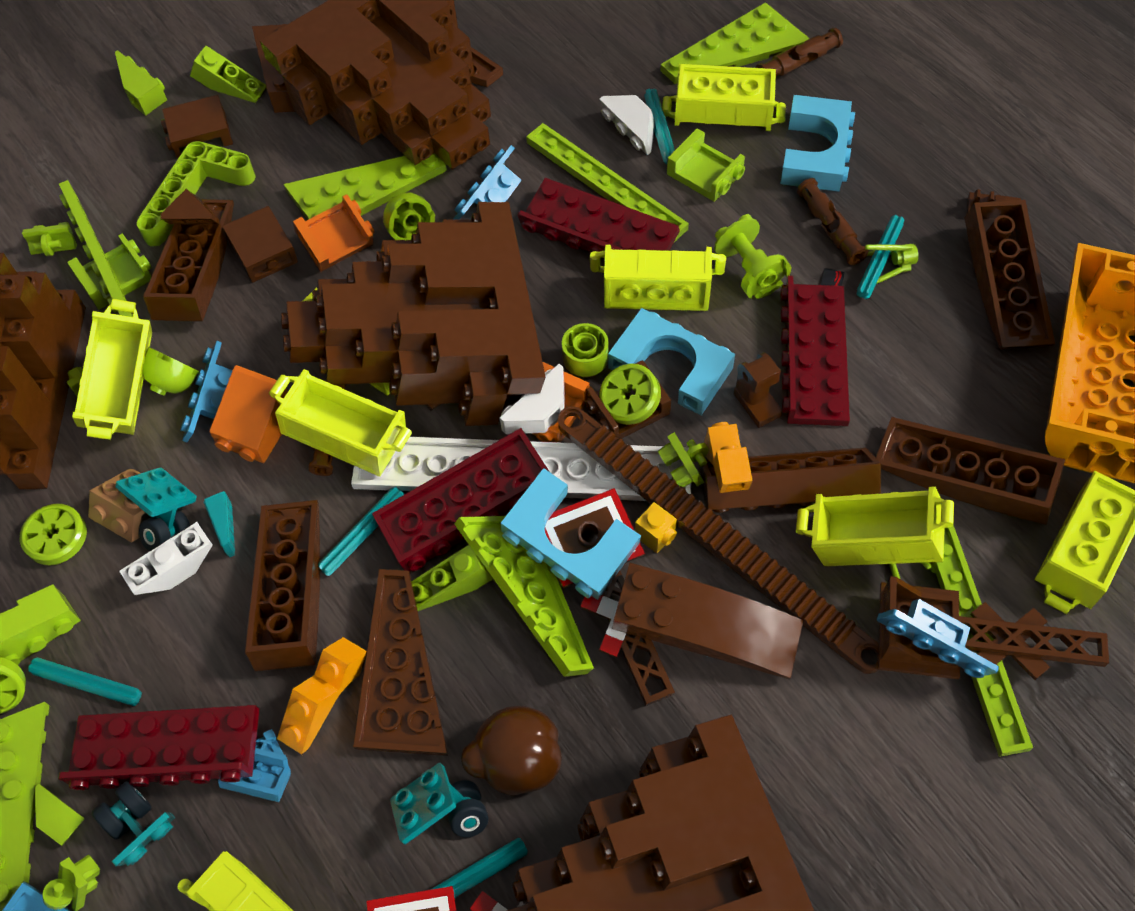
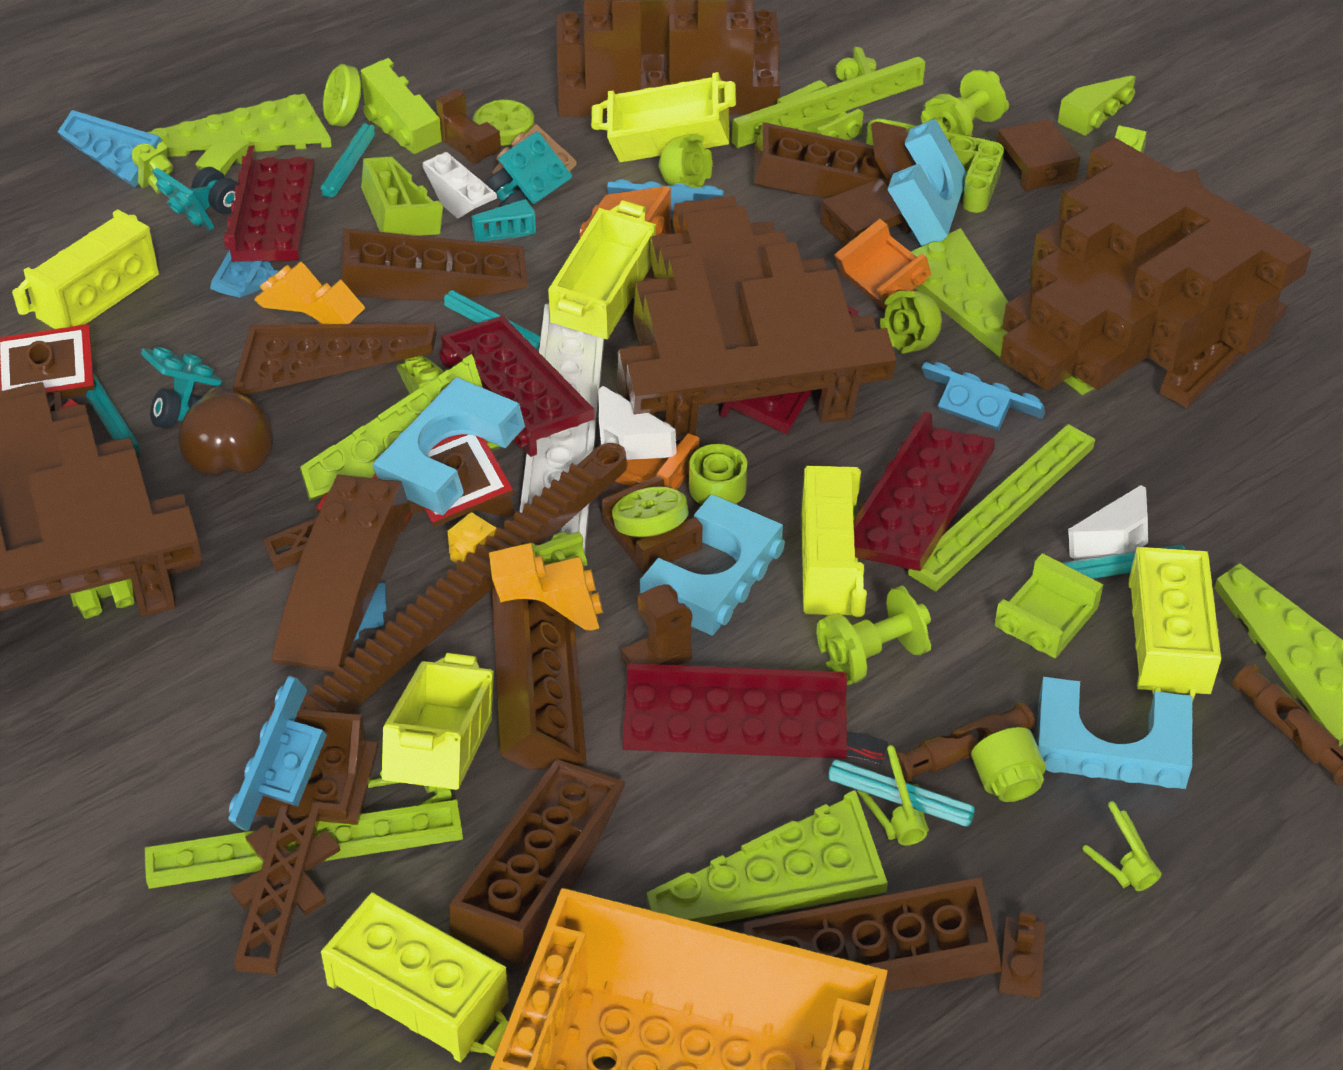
camera: 85 degrees right, 15 degrees down
(74, 563) = (462, 132): none -> reddish brown piece
(121, 151) = (980, 98): none -> lime piece
(176, 622) = (397, 201): none -> lime wedge
(253, 190) = (932, 187): none -> medium azure arch
(855, 193) = (1009, 764): none -> lime piece
(920, 143) = (1137, 865): none -> lime plant
(951, 323) = (786, 869): none -> lime wing

